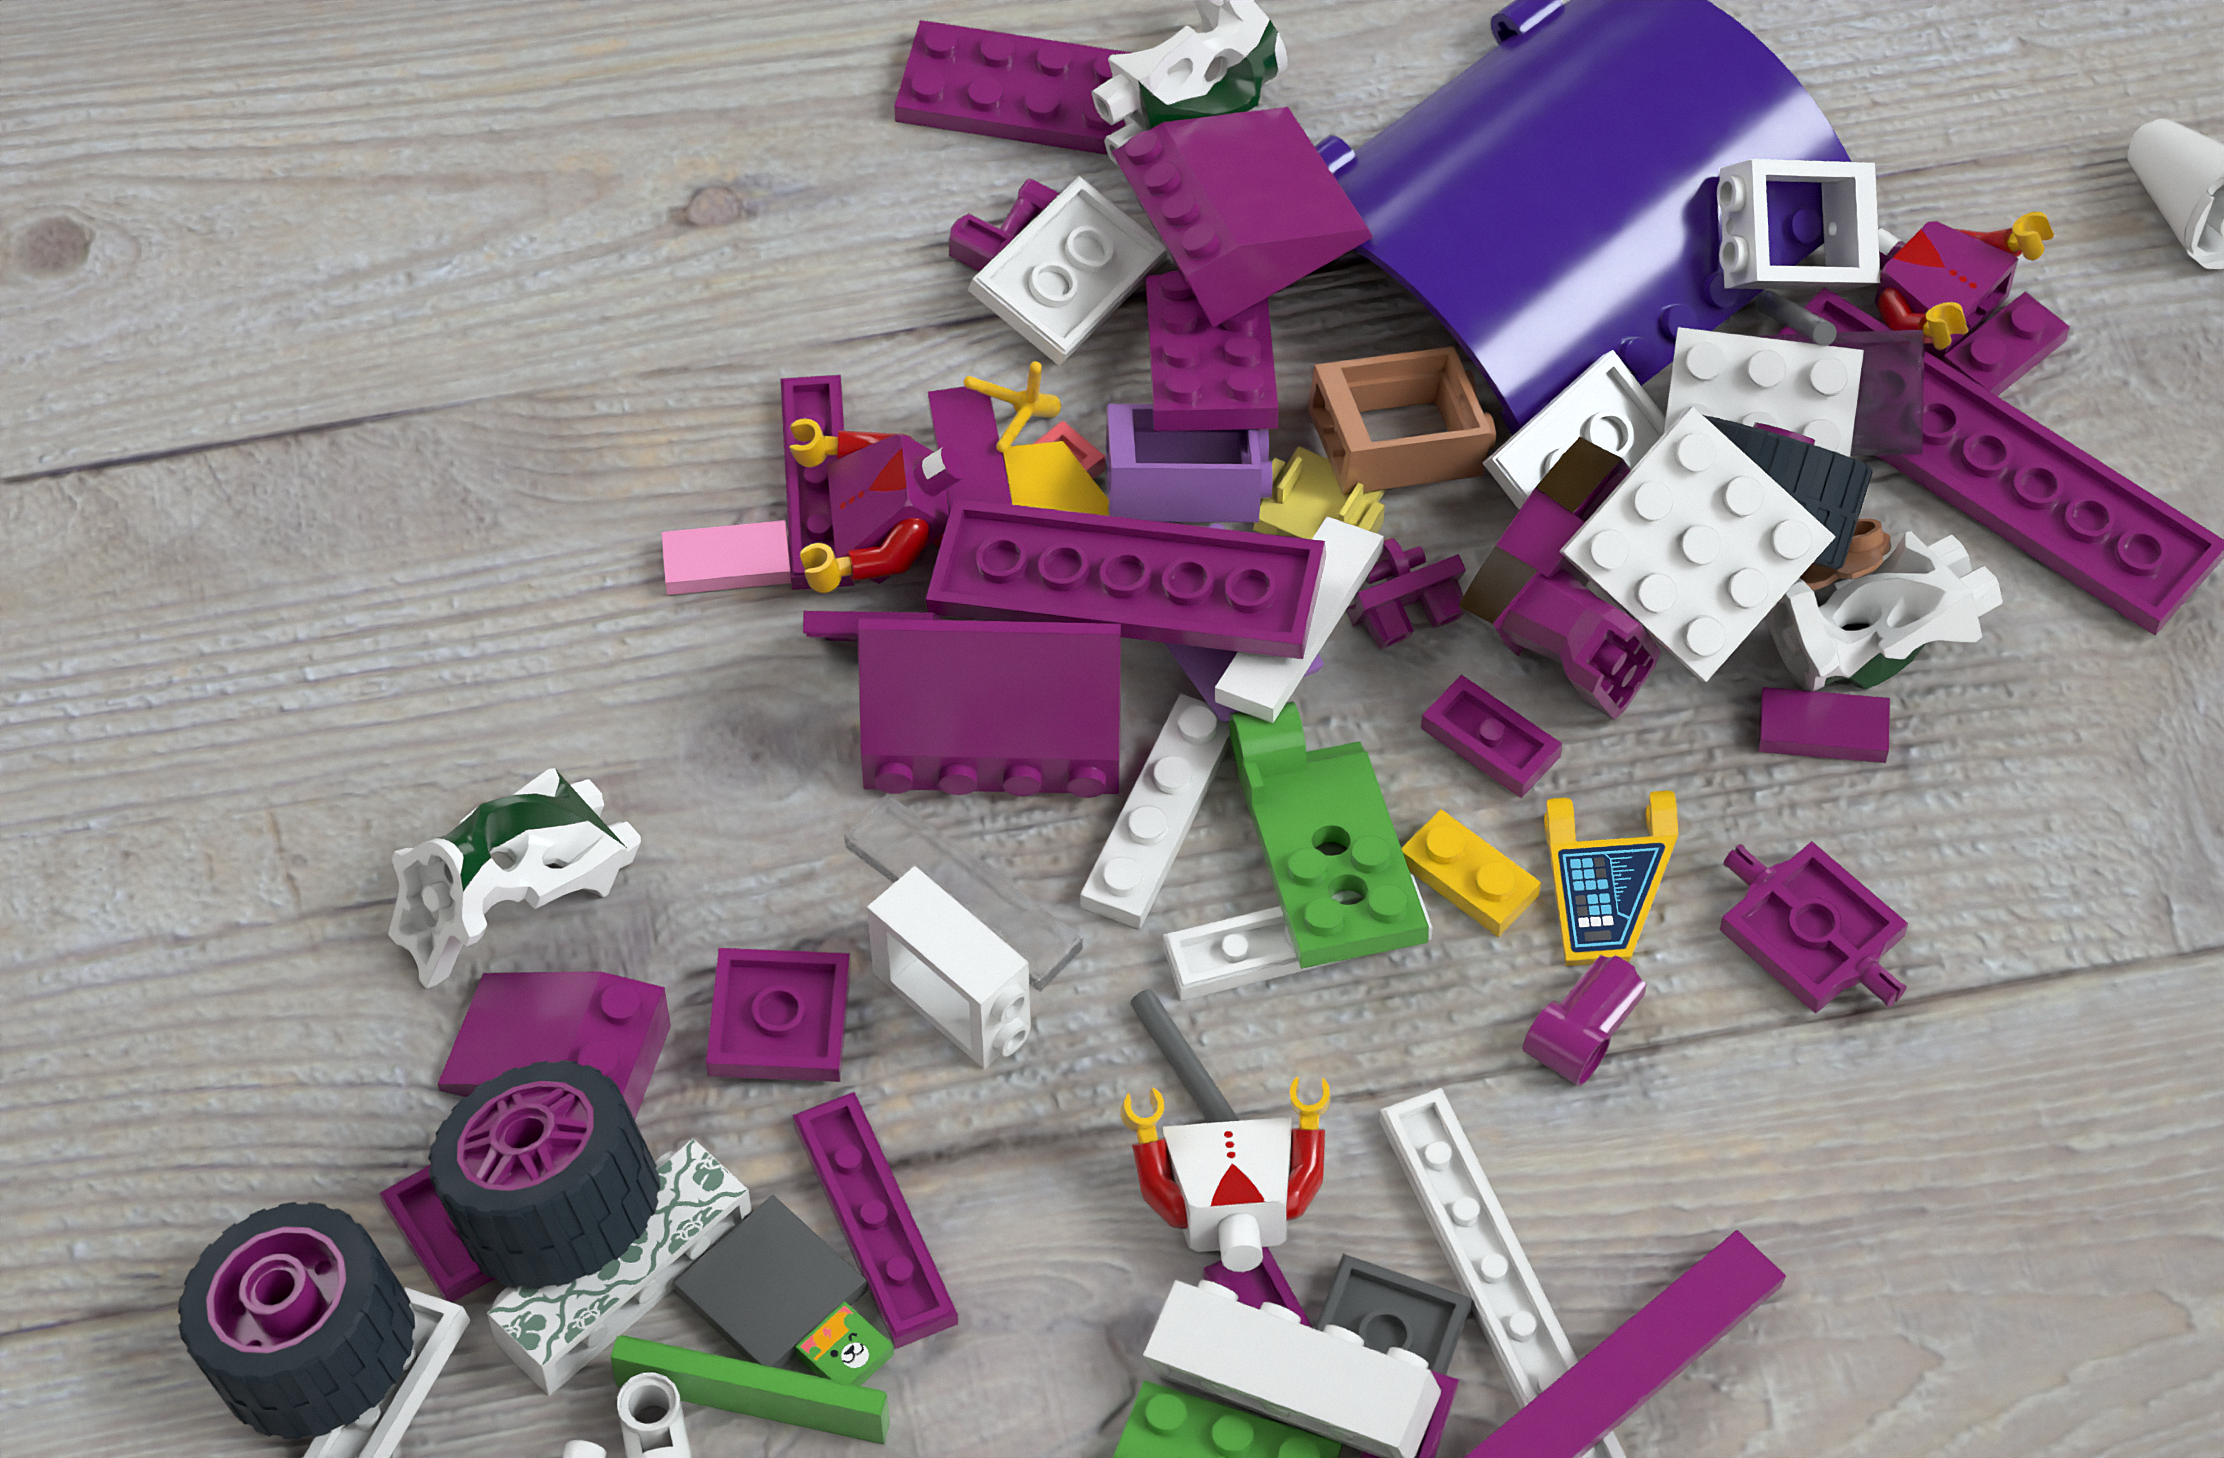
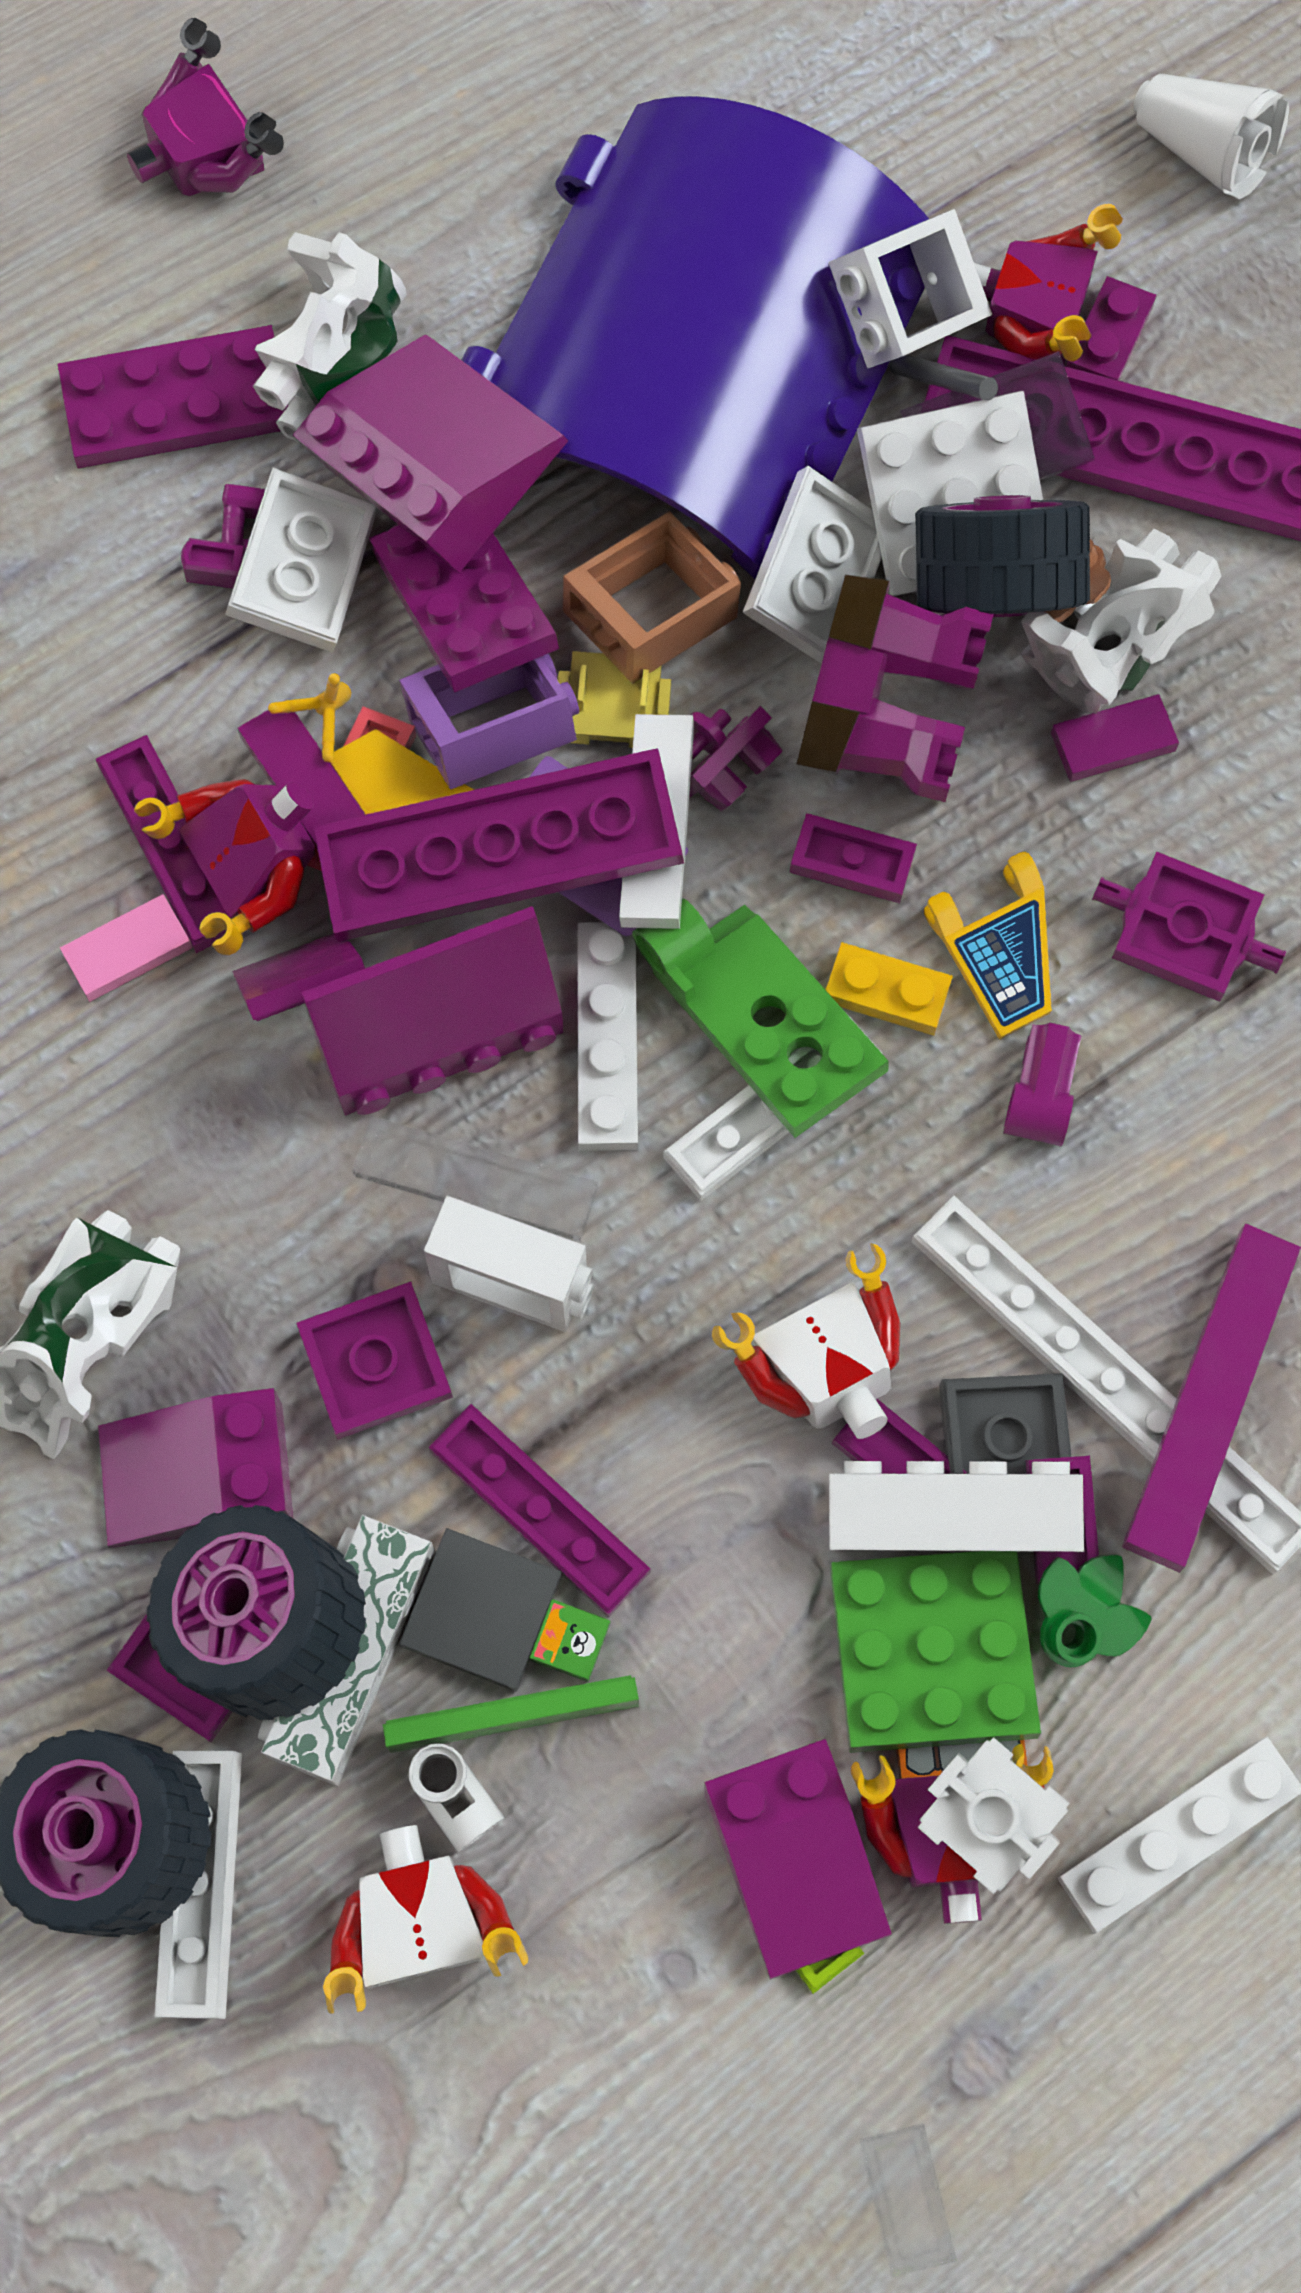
camera: 25 degrees left, 15 degrees up
(1182, 1057) = (735, 1260): dark grey bar -> none
(1697, 544) = (982, 635): white plate -> none

